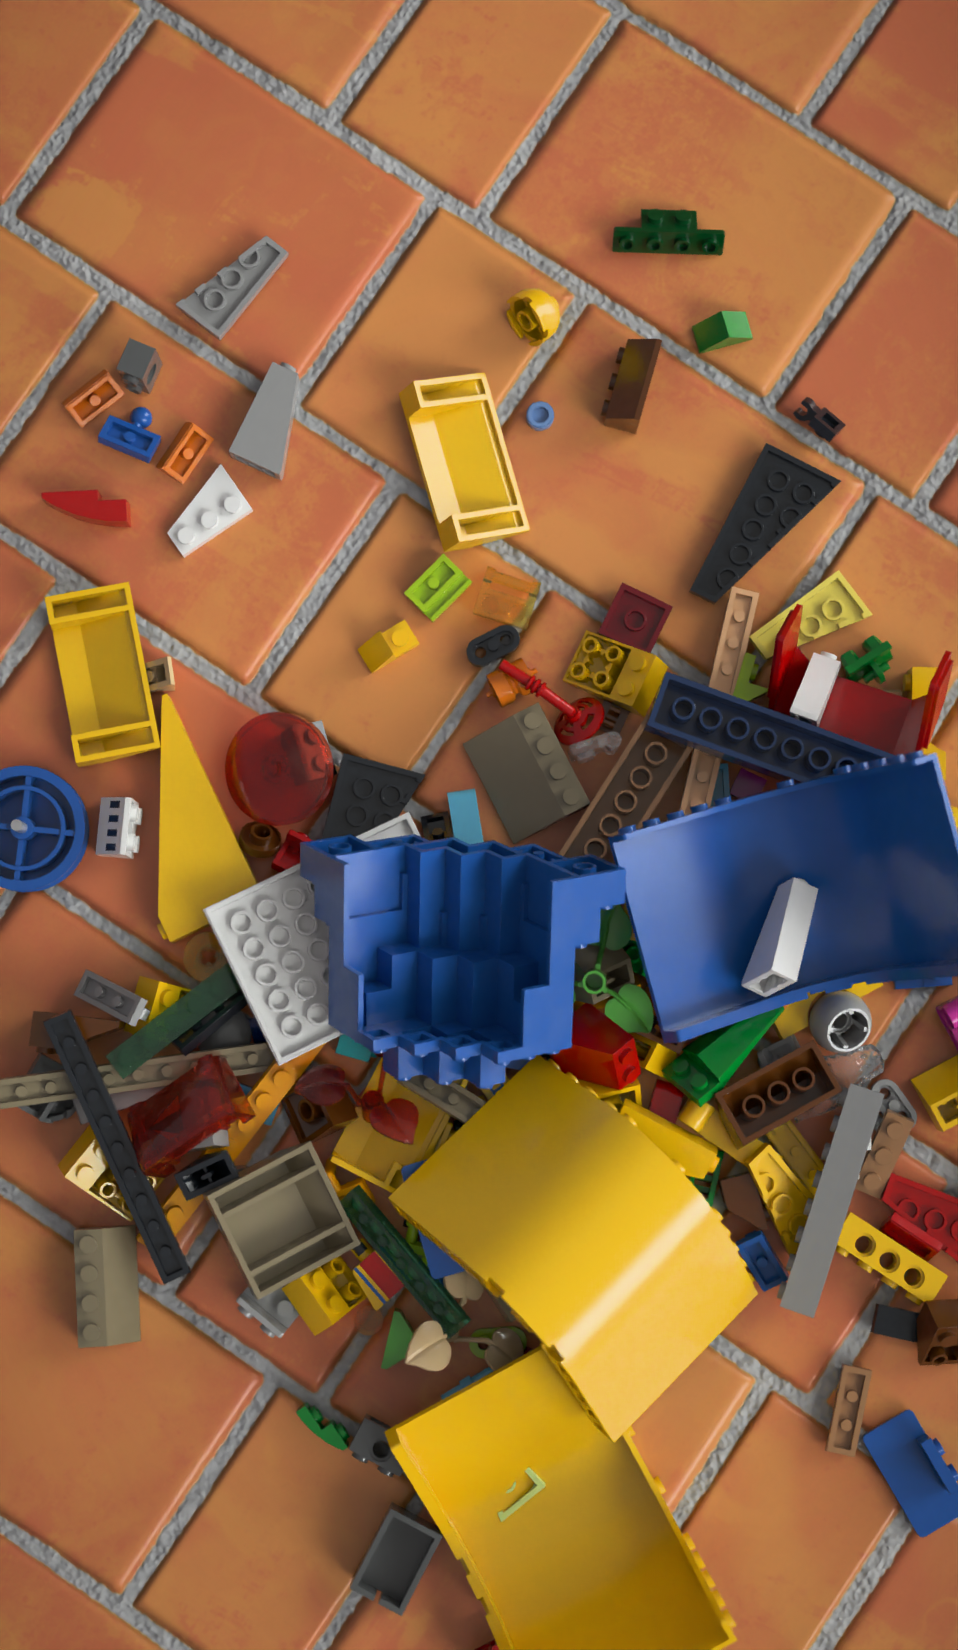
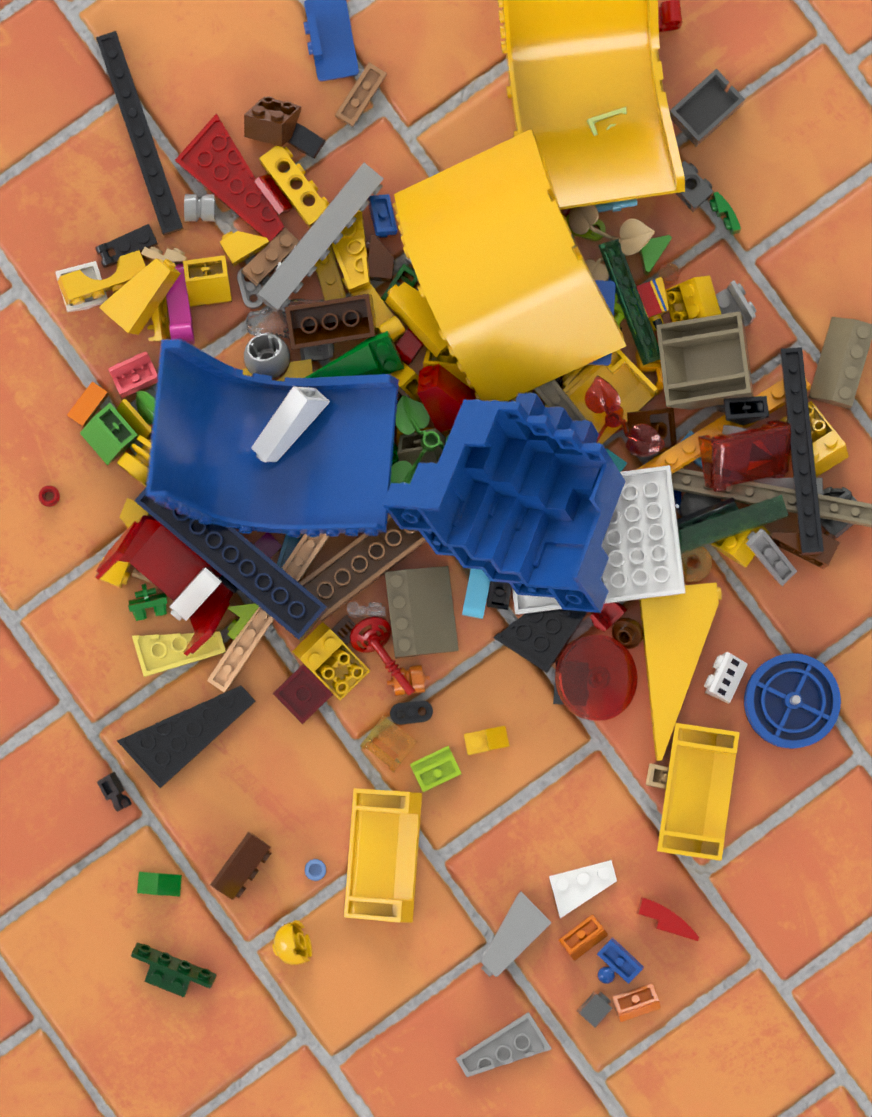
camera: 165 degrees left, 0 degrees up
(925, 1154) = (242, 245): none -> yellow slope

